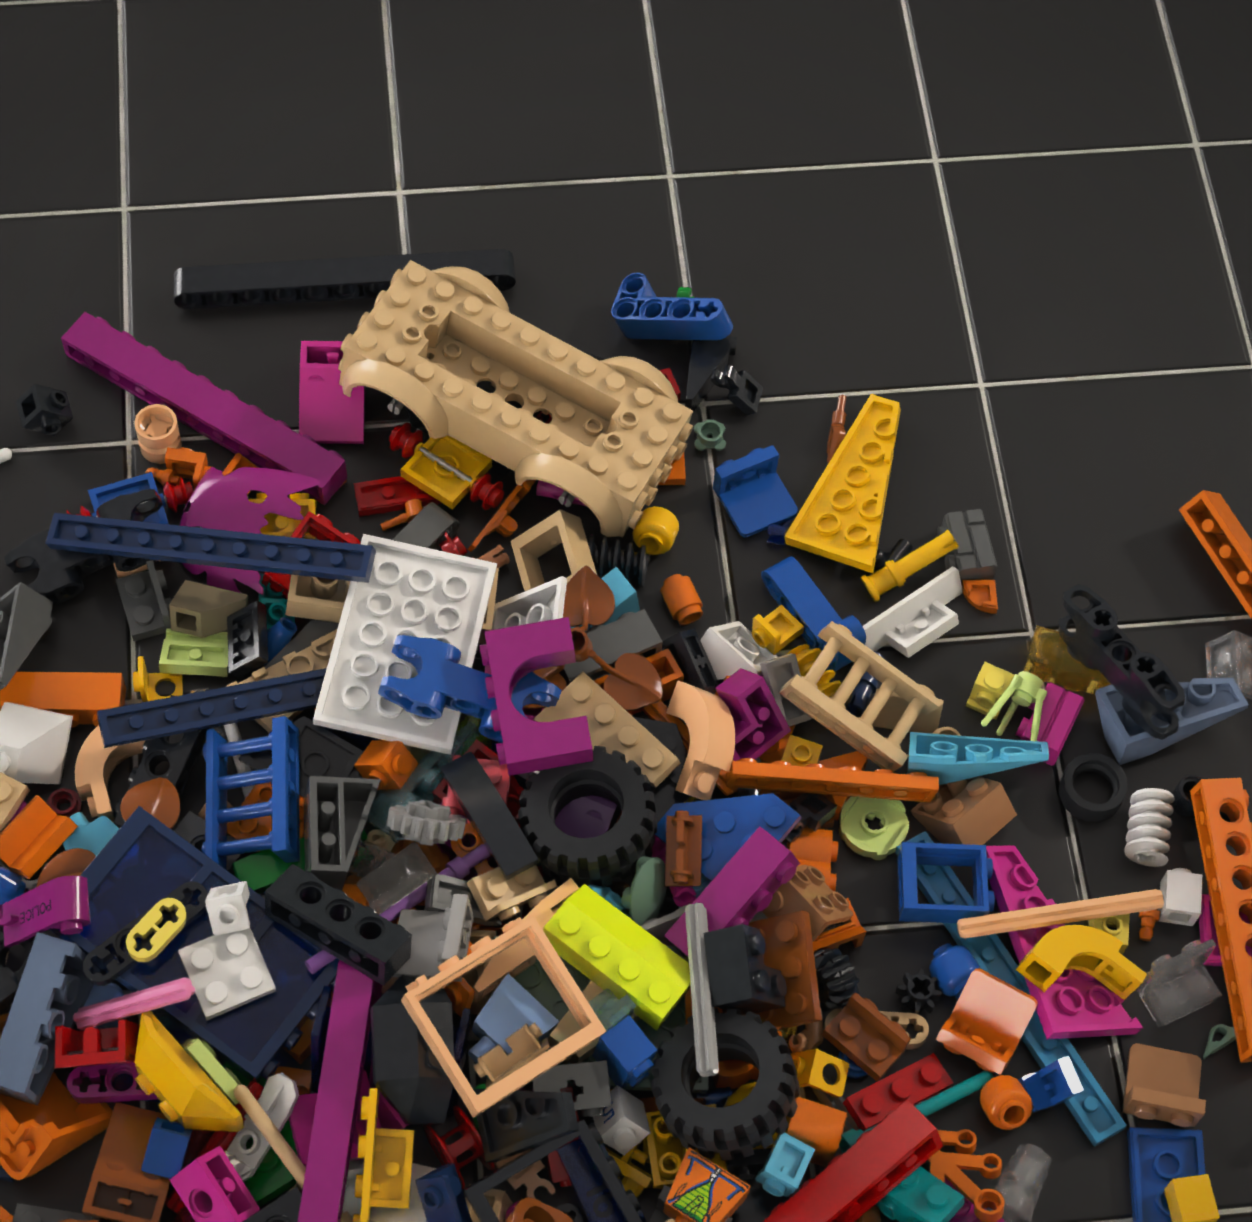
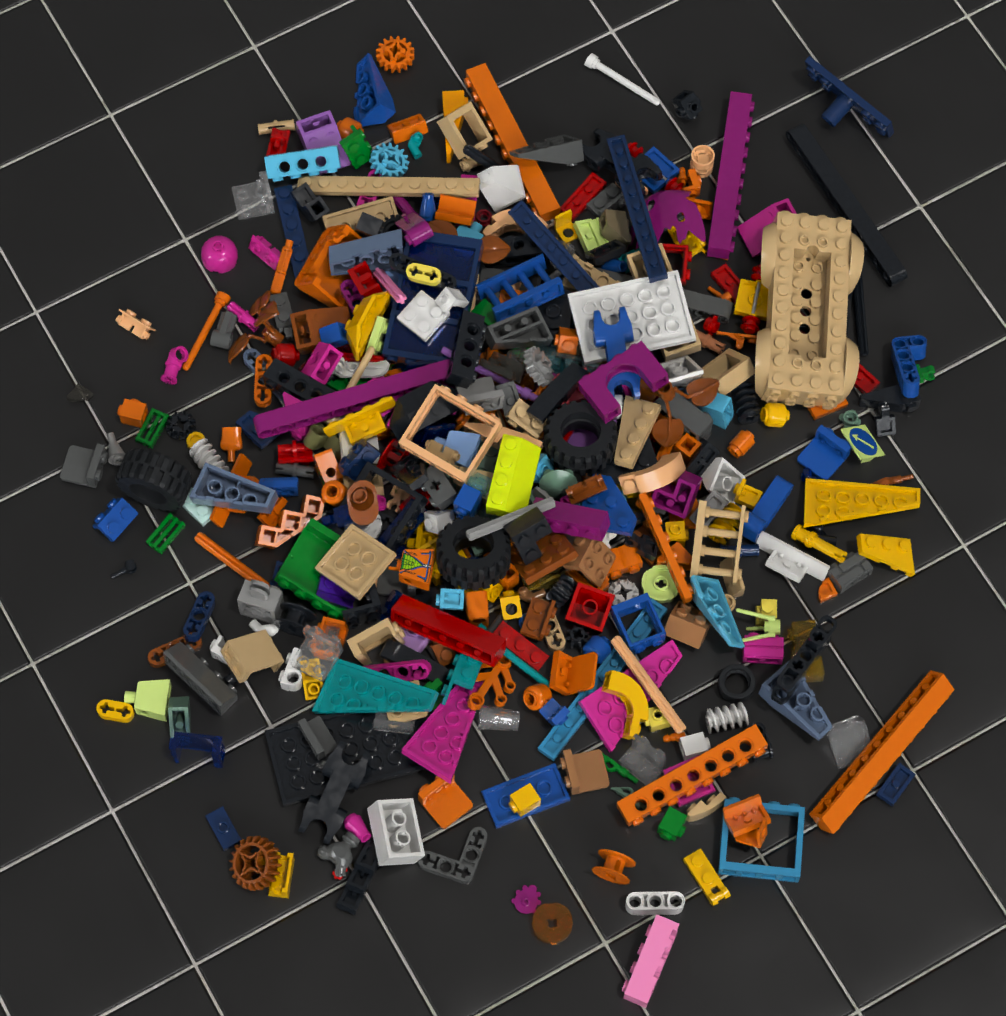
camera: 70 degrees right, 5 degrees up
(111, 633) = (583, 194): none -> red tile
(172, 194) = (846, 100): none -> dark blue plate
(761, 434) = (862, 442): none -> piece
(877, 899) = (615, 589): none -> white gear
(885, 947) = (590, 607): none -> red slope
(959, 479) = (889, 550): none -> yellow wing
(1175, 1029) = (620, 769): none -> green hand

